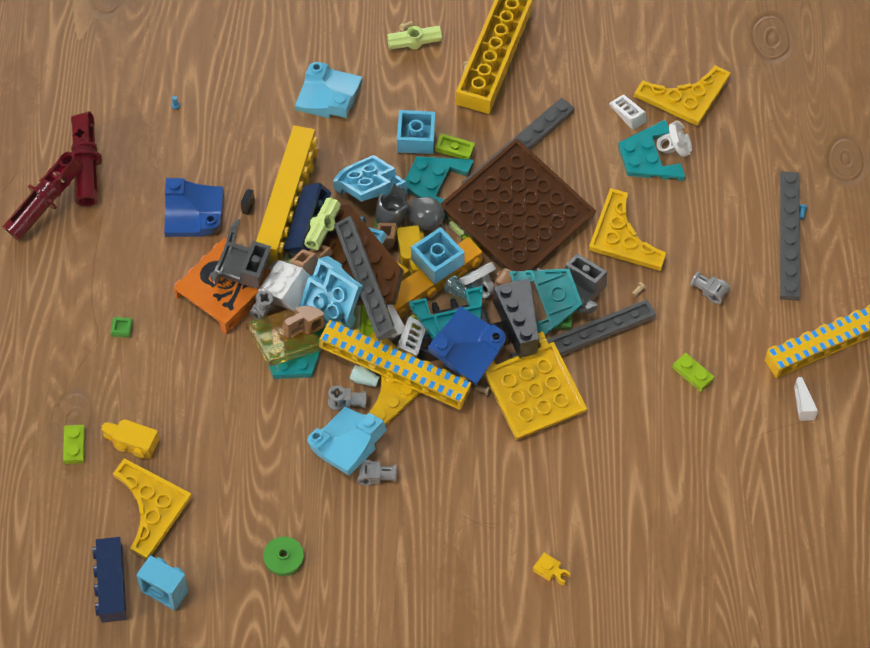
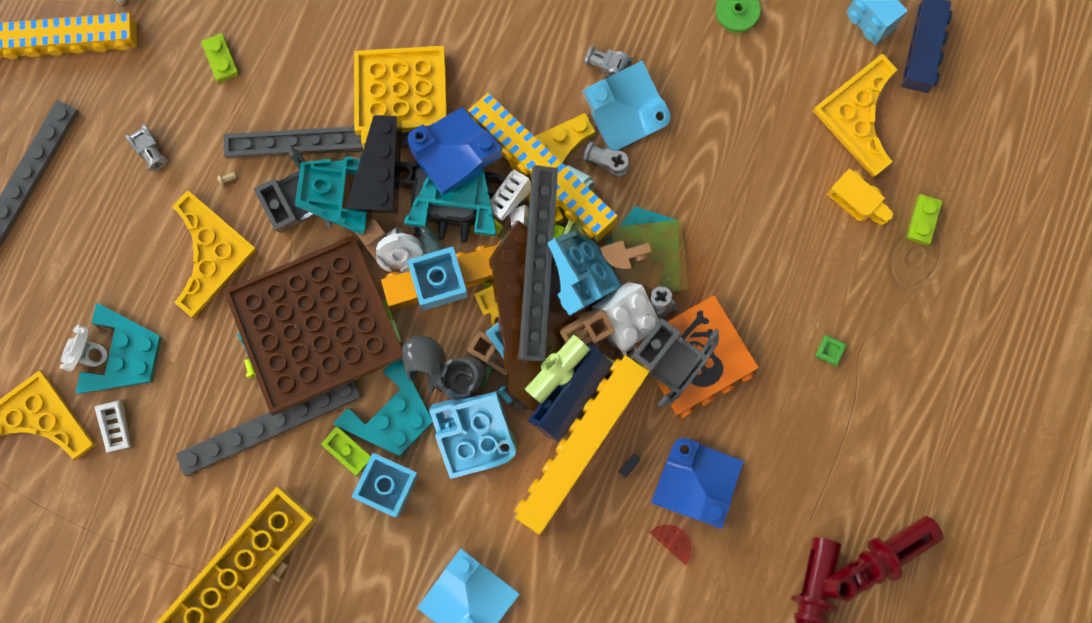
camera: 155 degrees left, 20 degrees up
(198, 172) = (673, 540): none -> clear red tile
(406, 238) = (459, 324): yellow hinge -> none

